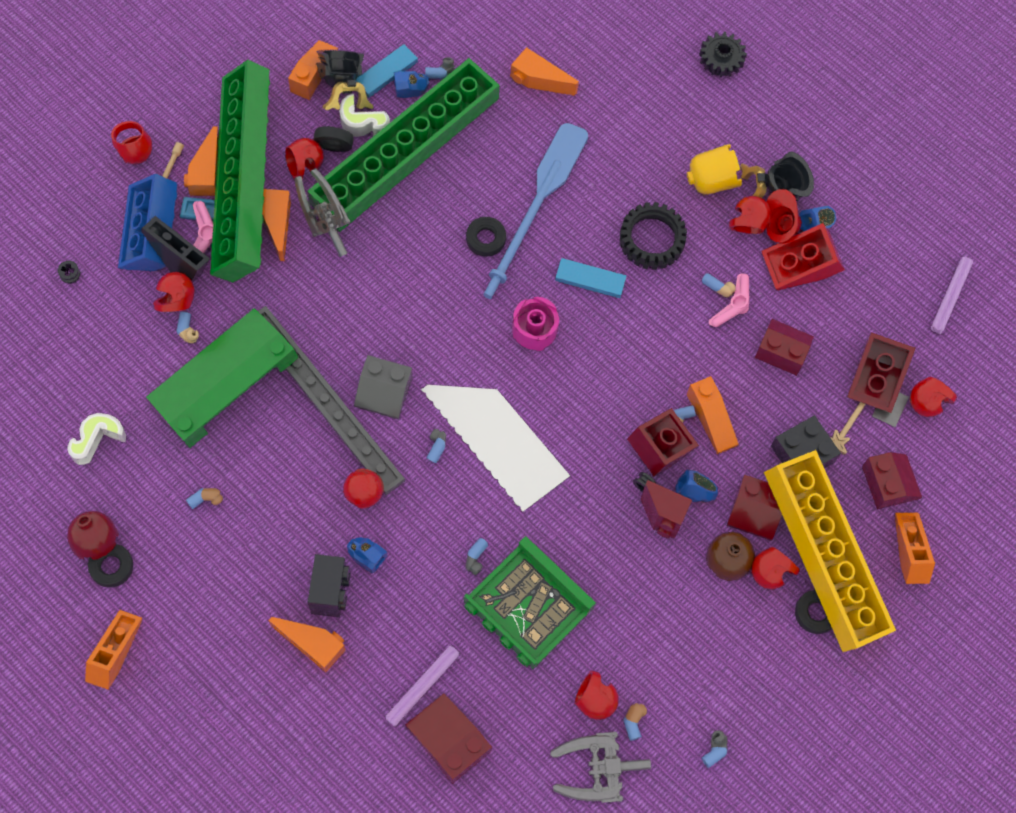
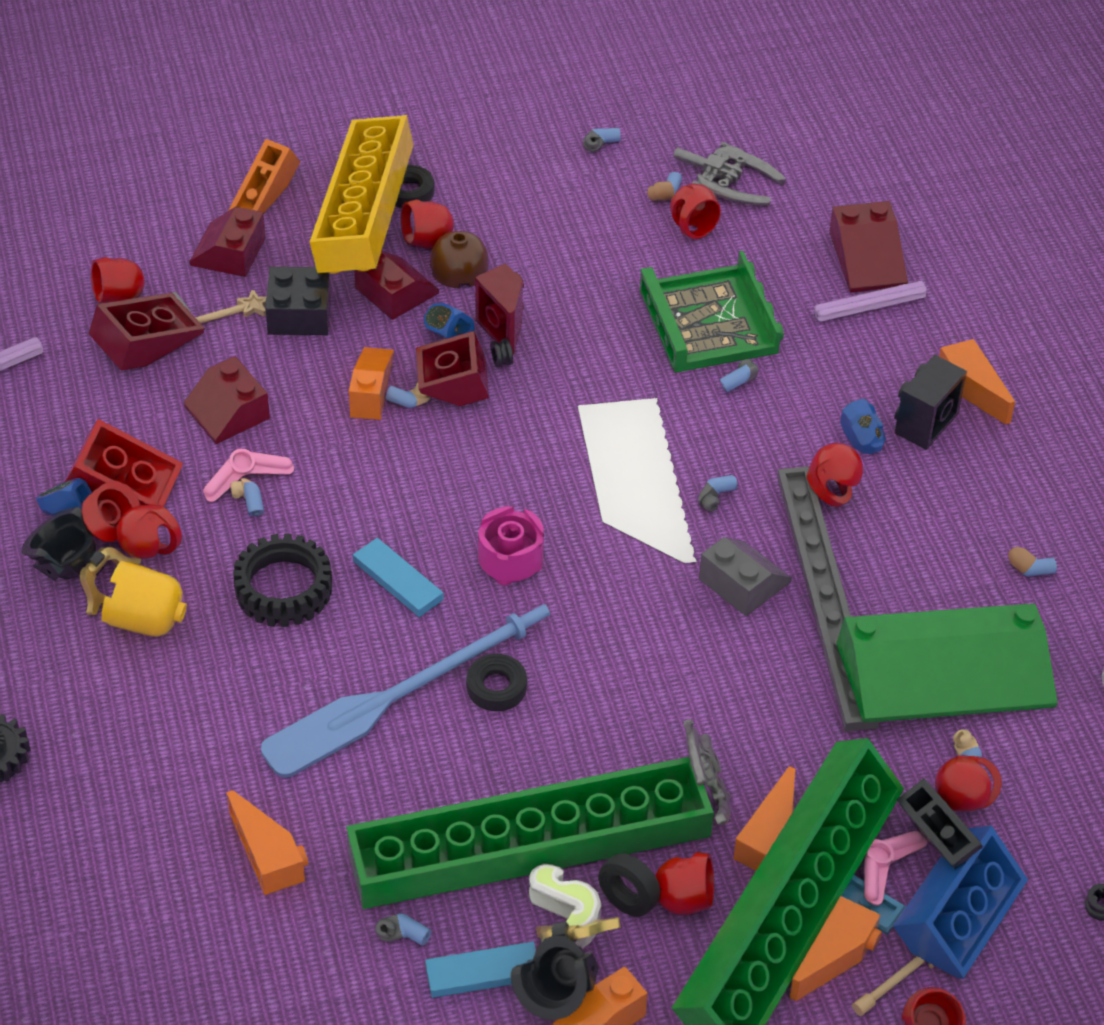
camera: 145 degrees left, 20 degrees down
(410, 84) = (462, 928): blue rock -> none

